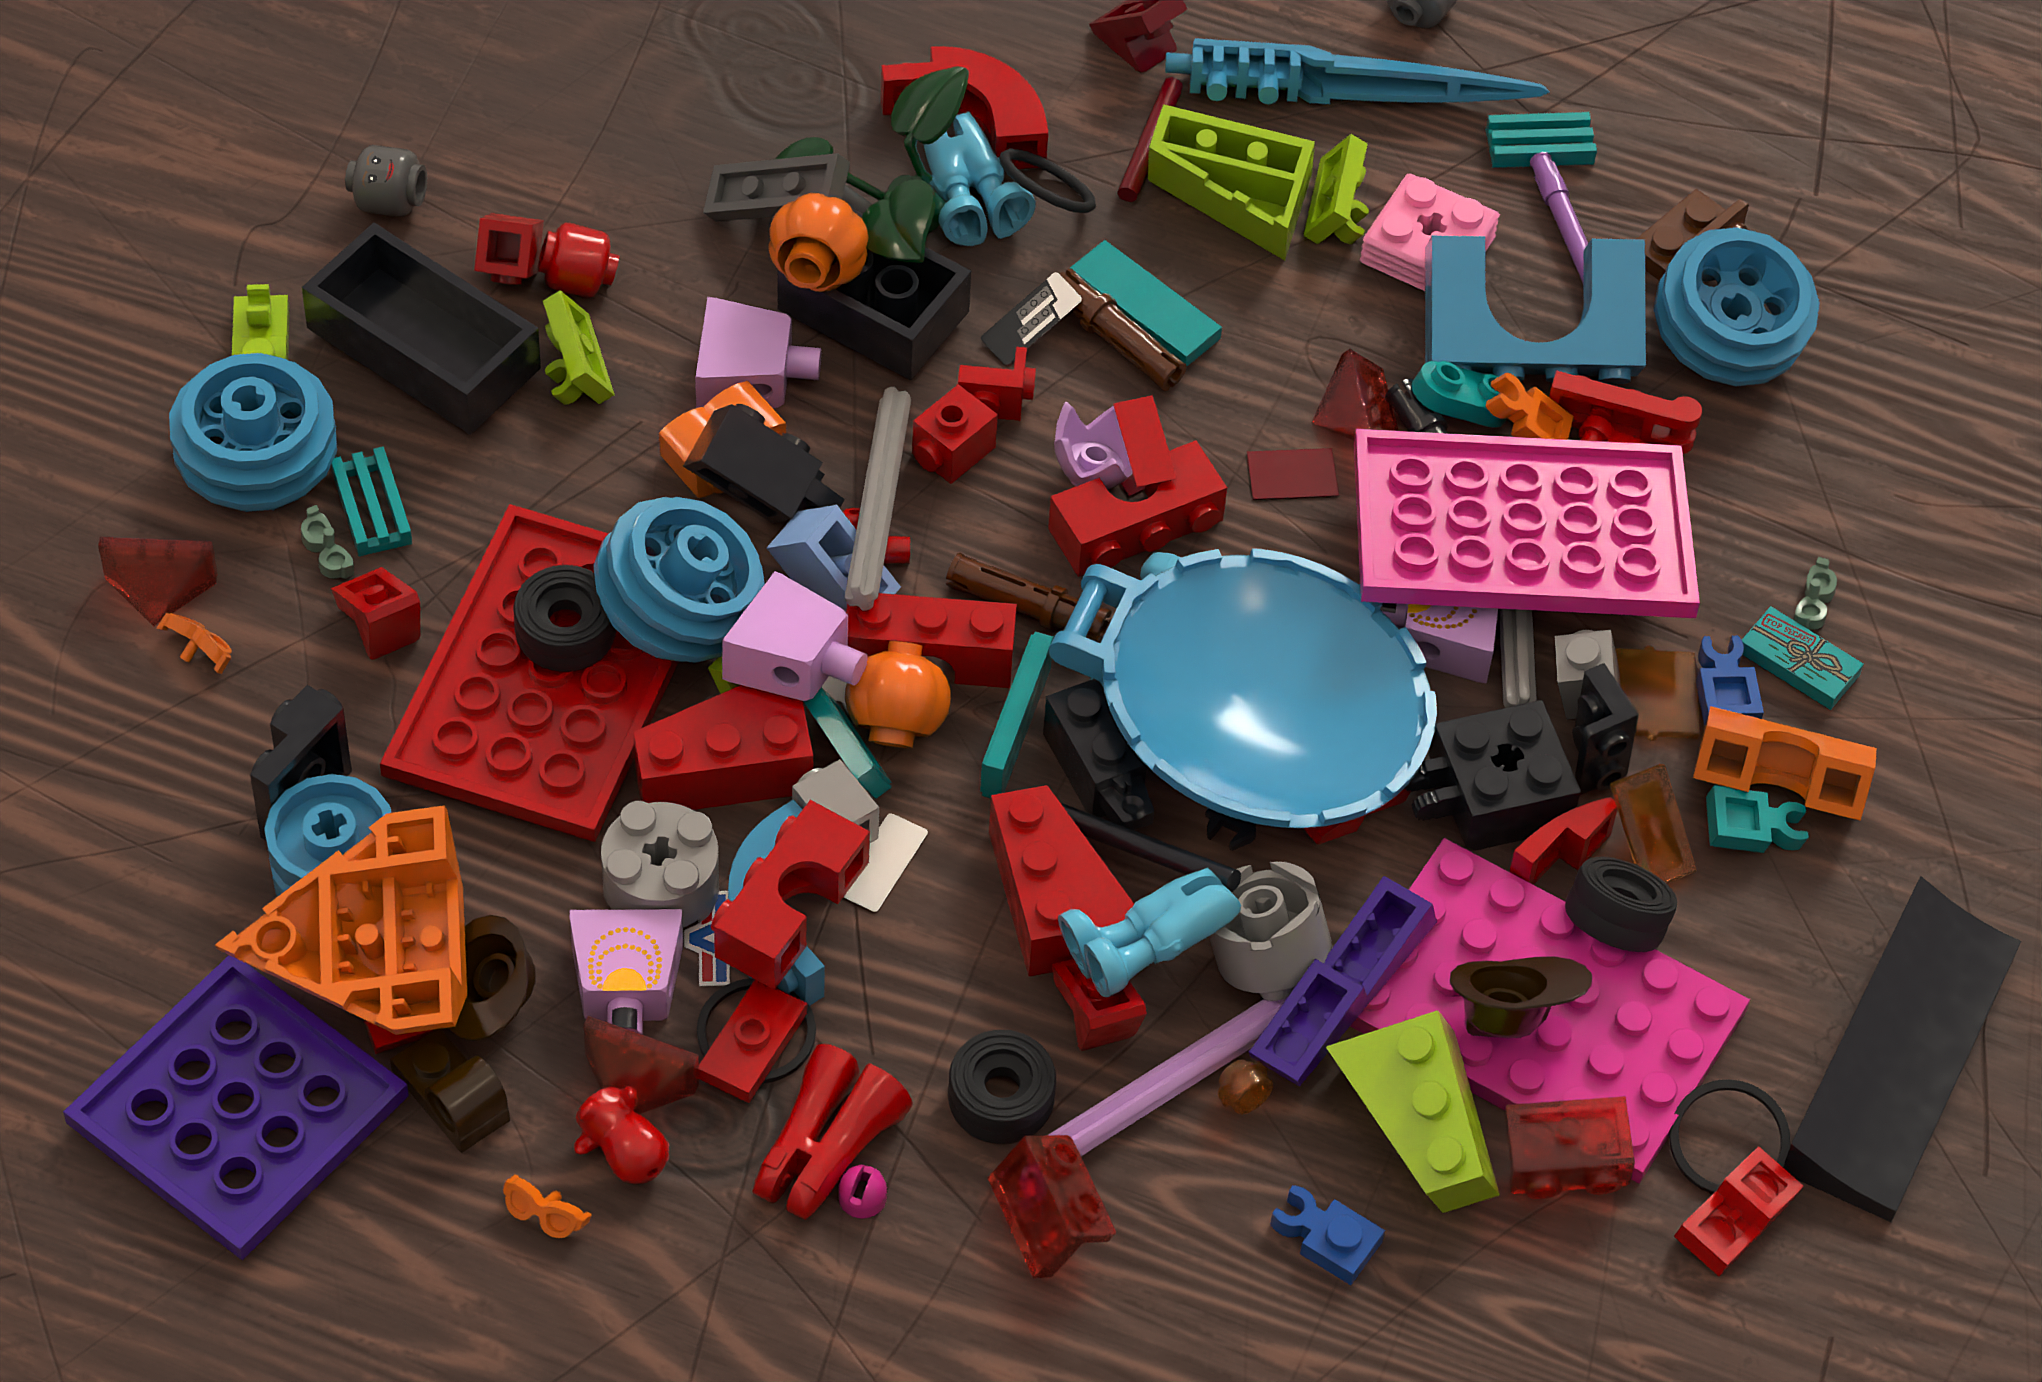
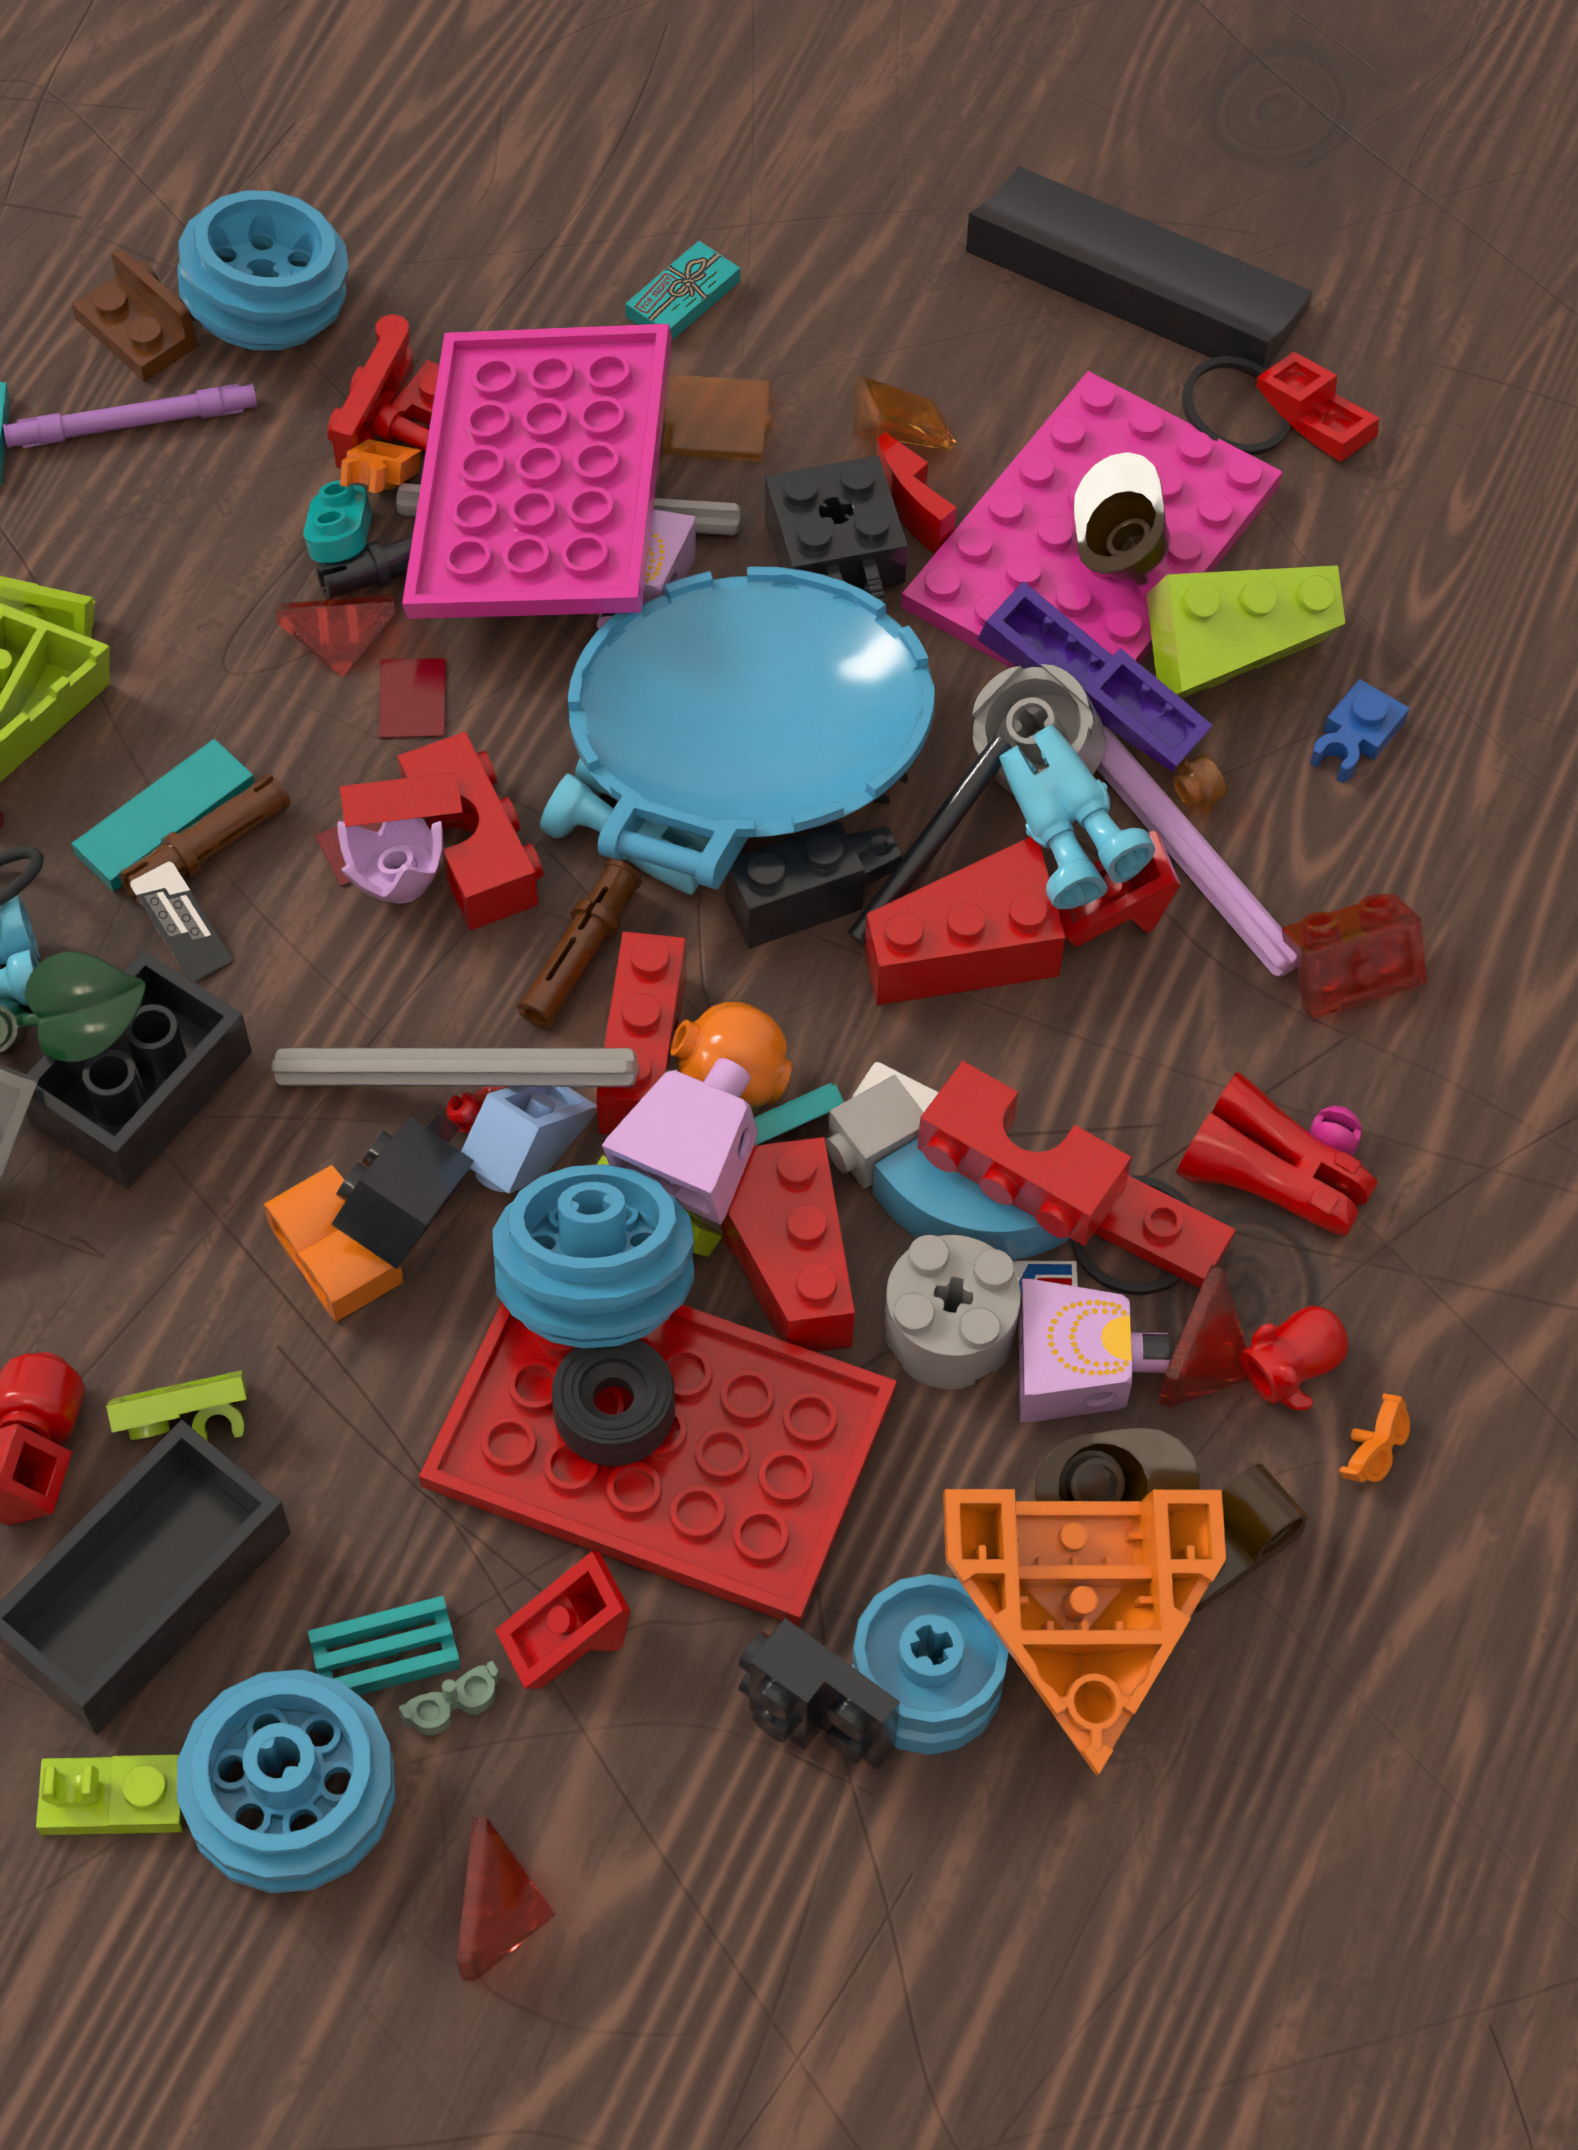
camera: 85 degrees left, 5 degrees up
(200, 638) = (579, 1855): orange piece -> none
(283, 1174) = (1231, 1870): dark purple piece -> none
(750, 346) = (209, 1215): lavender torso -> none
(809, 237) = (103, 1091): orange plant -> none
(954, 434) = (348, 1001): red brick -> none
(1001, 388) = (291, 947): red bracket -> none
(1008, 1055) = (1220, 963): black tyre -> none
(1016, 715) = (751, 958): teal tile -> none
(1411, 217) = (108, 539): bright pink brick -> none
(1569, 1146) = (1272, 511): clear red bracket -> none
(1577, 654) = (713, 447): light grey brick -> none
(1603, 731) = (795, 430): black bracket -> none
(1605, 343) = (282, 395): dark azure arch -> none
(1621, 904) = (996, 447): black tyre -> none
(1726, 684) = (727, 348): blue plate -> none
(1748, 823) = (883, 348): teal plate -> none
(1819, 589) = (598, 270): sand green piece -> none
(1822, 769) = (811, 334): orange arch -> none

